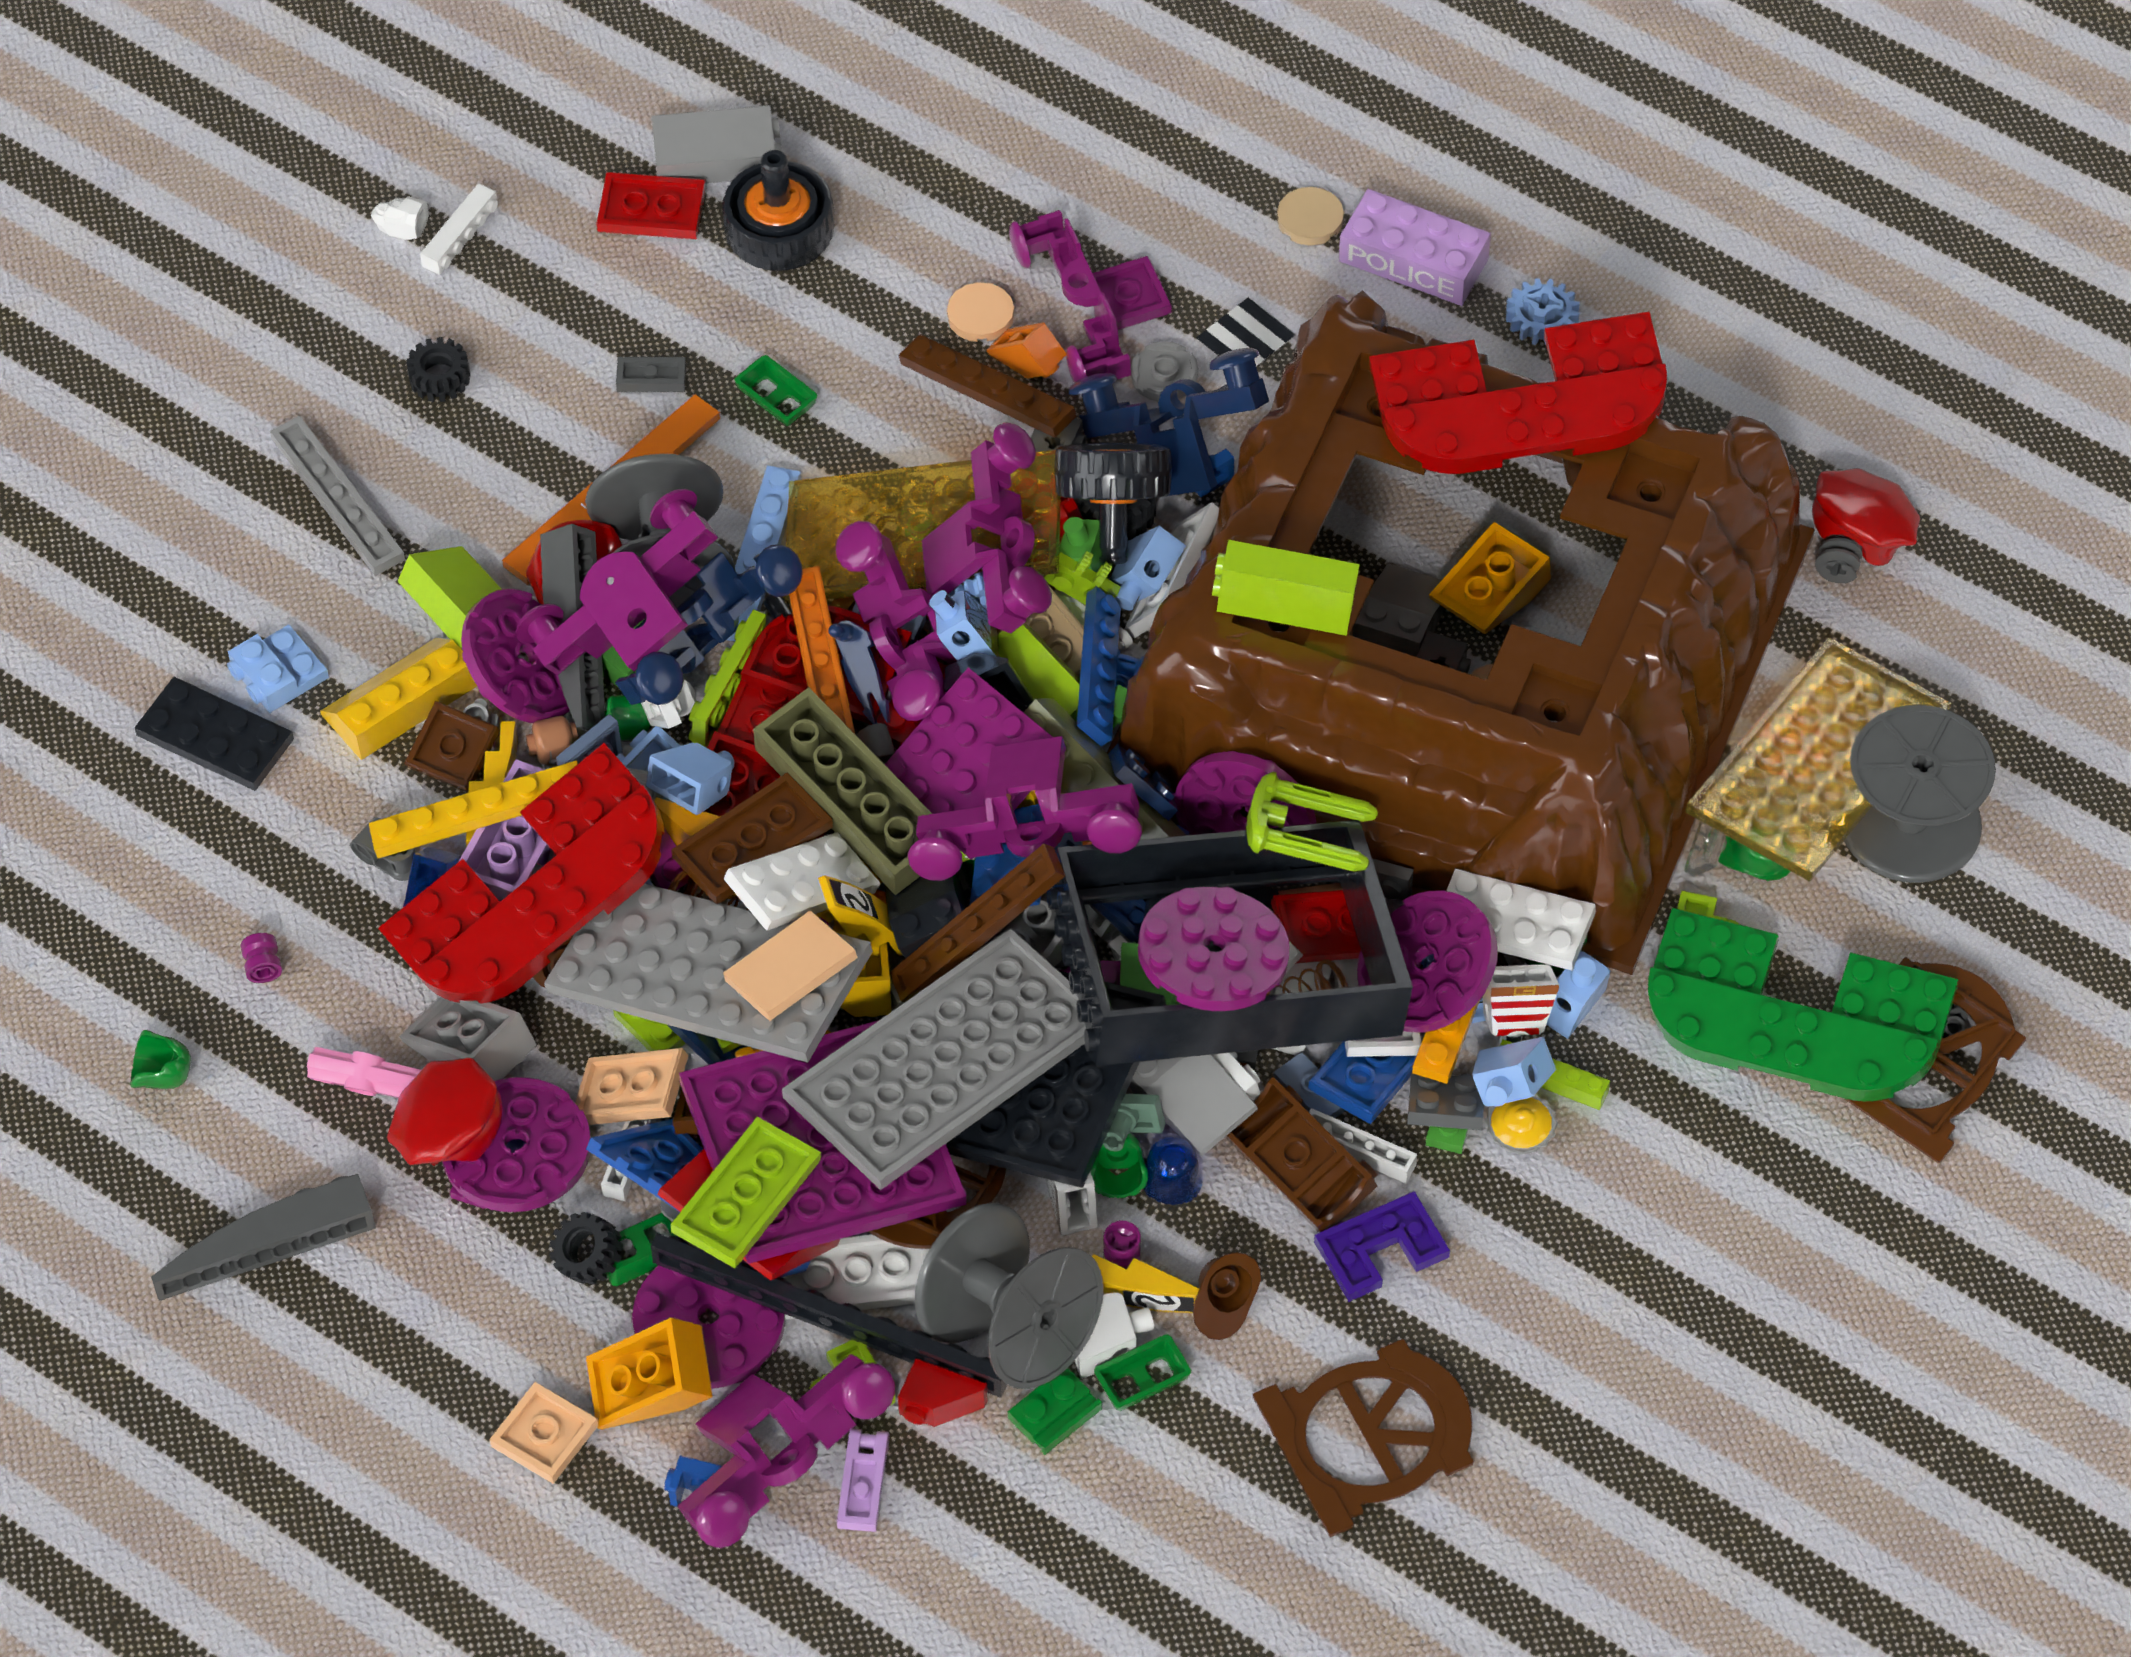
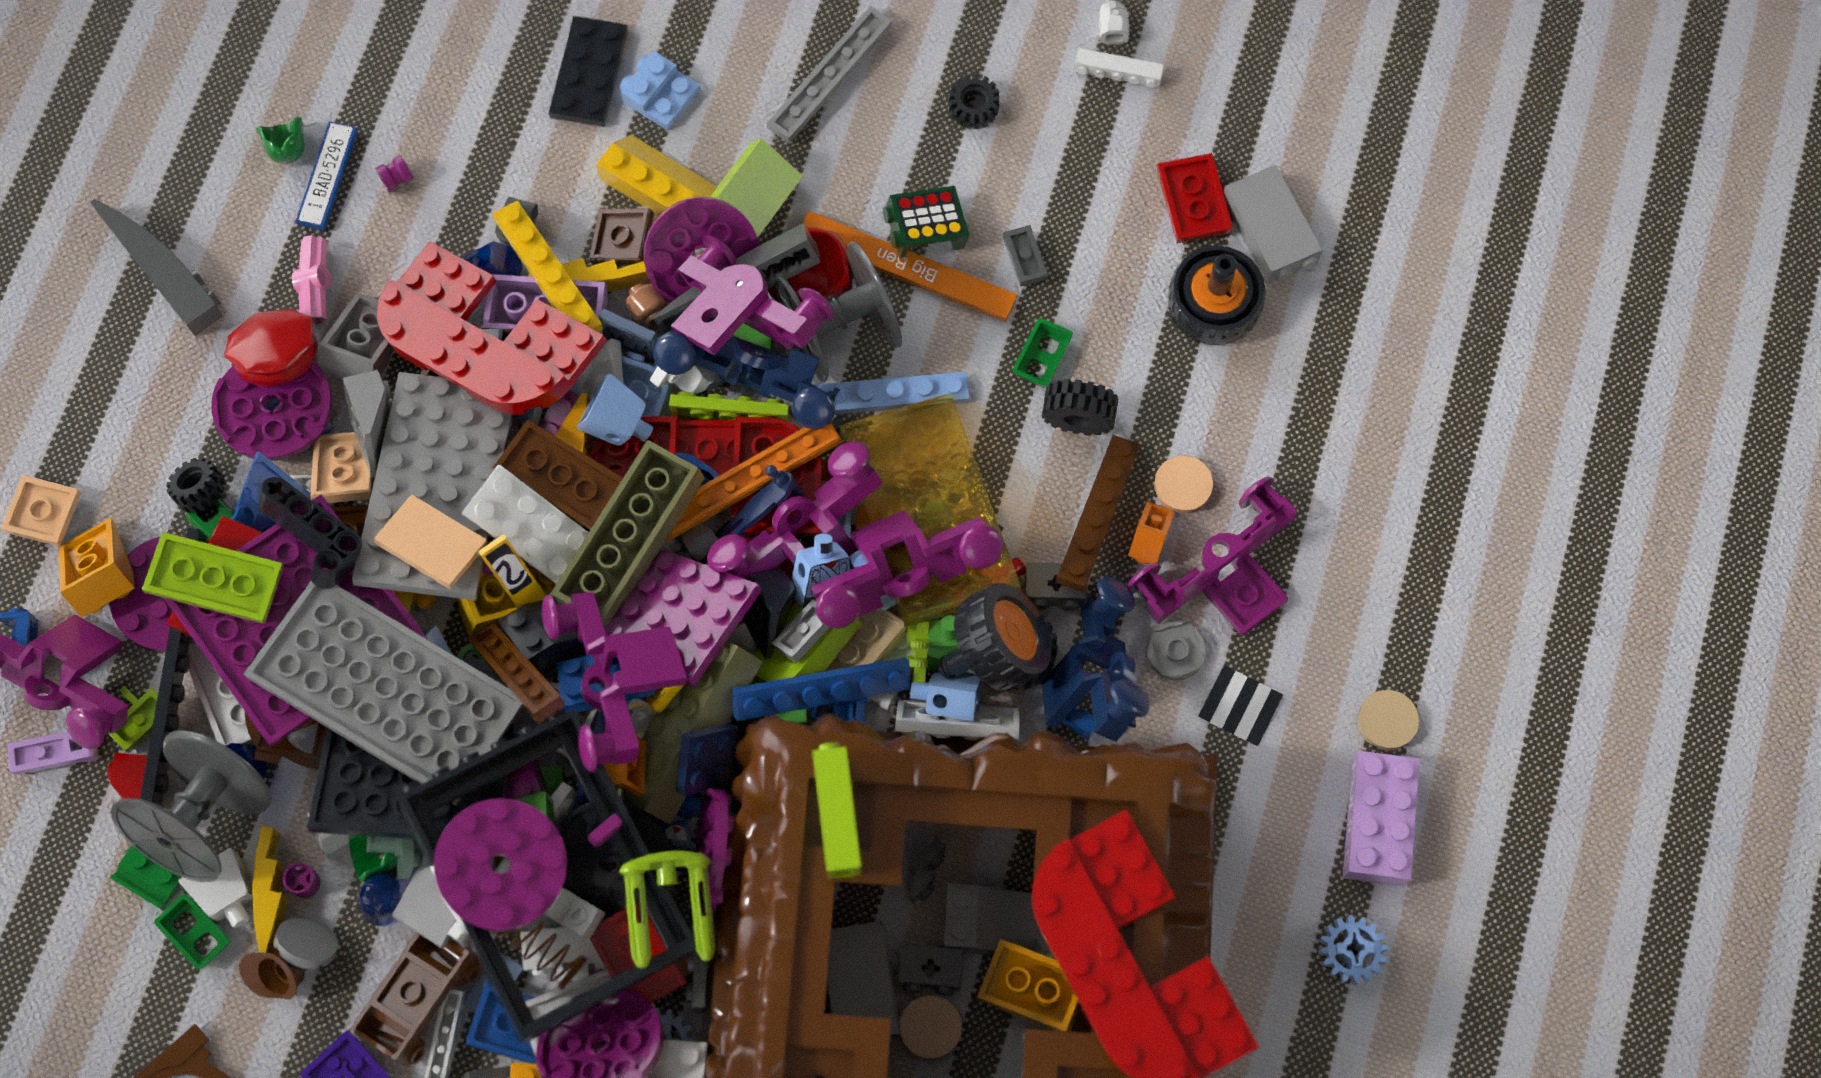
camera: 70 degrees right, 15 degrees up
(226, 1035) = (326, 176): none -> tile
(570, 446) = (925, 219): none -> panel
(590, 1032) = (368, 413): none -> light grey slope
(728, 1073) = (282, 501): none -> black beam
(862, 361) = (1080, 407): none -> black tyre
(1029, 661) = (800, 634): none -> light grey plate
(1200, 1247) = (305, 943): none -> light grey tile
(1209, 848) = (605, 831): none -> magenta tile

